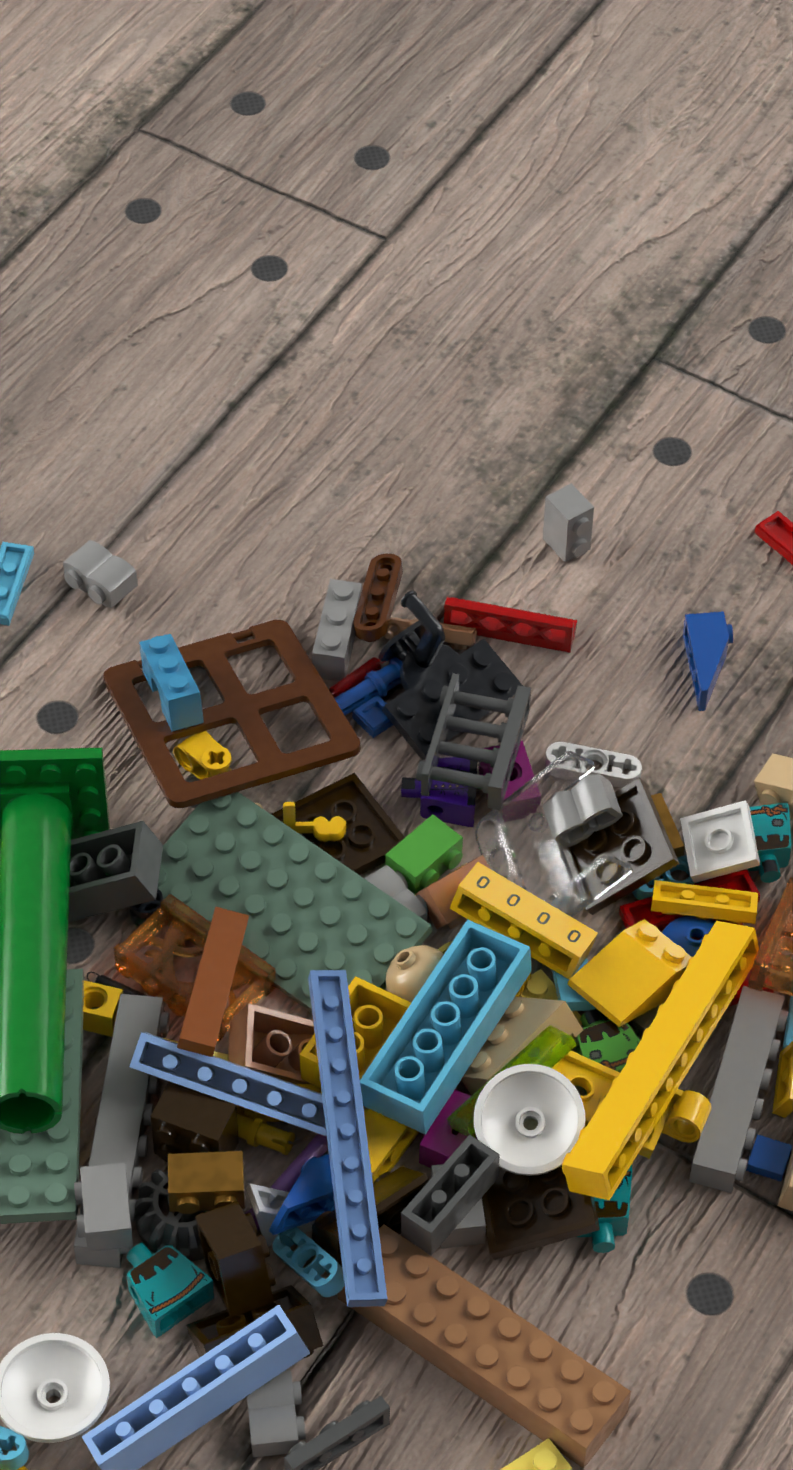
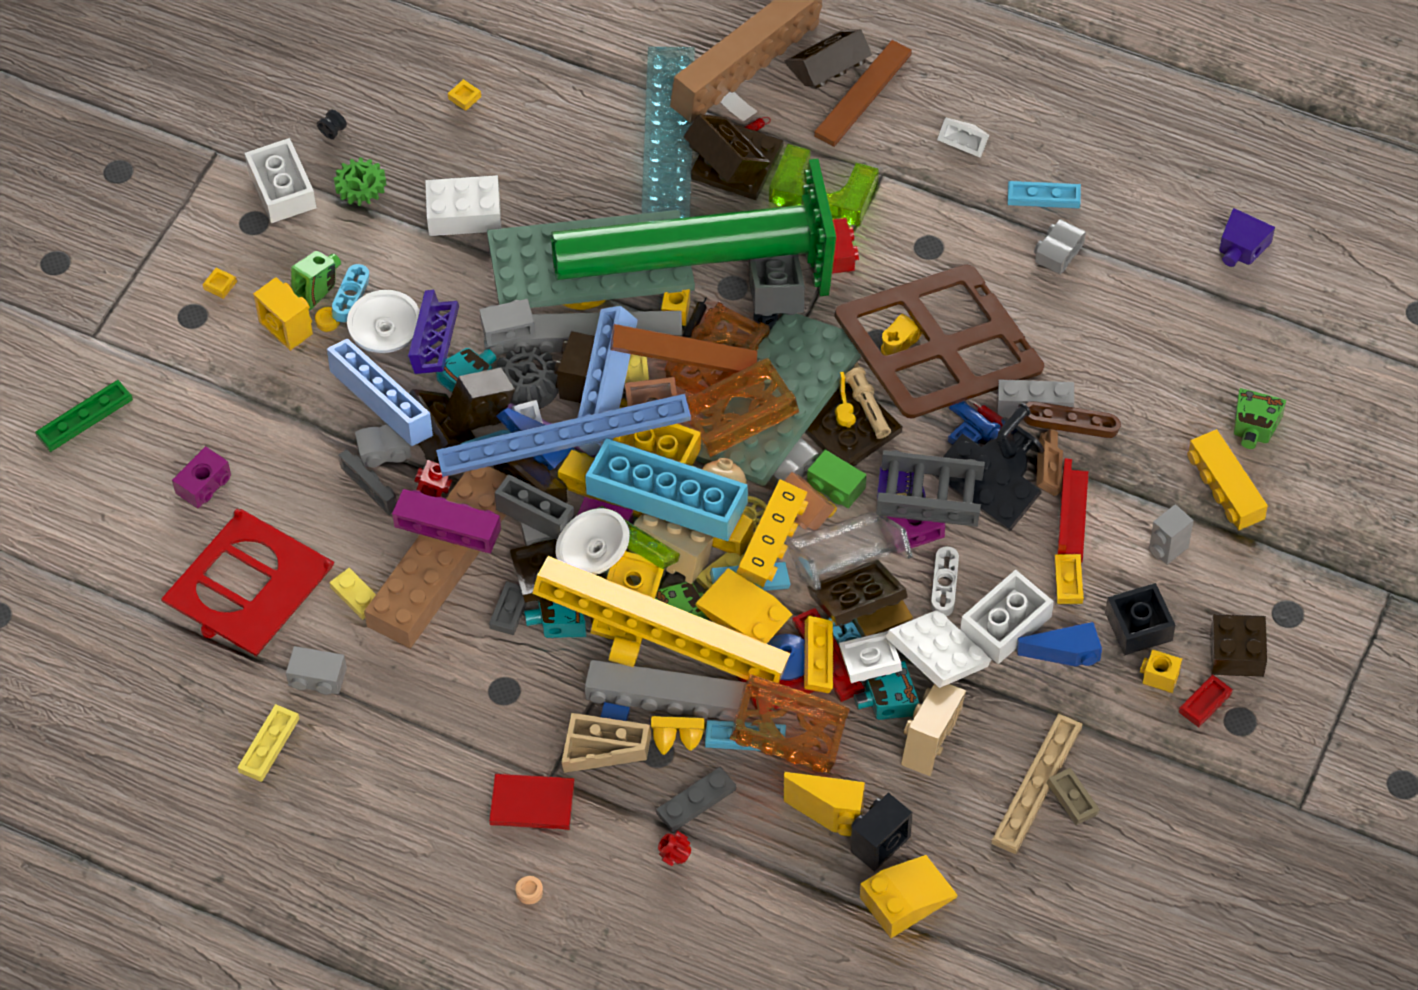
camera: 85 degrees right, 5 degrees up
(90, 1328) = (426, 336): none -> dark purple fence
(131, 397) = (1244, 238): none -> dark purple torso
(172, 679) = (933, 297): dark azure arch -> none
(205, 1180) = (532, 373): pearl gold brick -> none
(319, 797) = (864, 394): none -> tan pin
(325, 891) = (741, 384): none -> clear orange fence
(358, 1345) = (431, 481): none -> red brick
(400, 427) = (1257, 417): none -> bright green torso
(458, 1310) = (446, 520): none -> magenta brick
(485, 467) = (1227, 480): none -> yellow brick
(582, 810) = (879, 561): light grey brick -> none
(582, 1268) = (508, 609): none -> dark grey plate
(607, 638) = (1068, 579): none -> yellow plate
(665, 700) = (1005, 614): none -> white brick
(681, 573) = (1140, 619): none -> black brick
(708, 773) = (938, 648): none -> white plate
(723, 492) = (1238, 645): none -> dark brown brick
(750, 568) = (1161, 680): none -> yellow brick

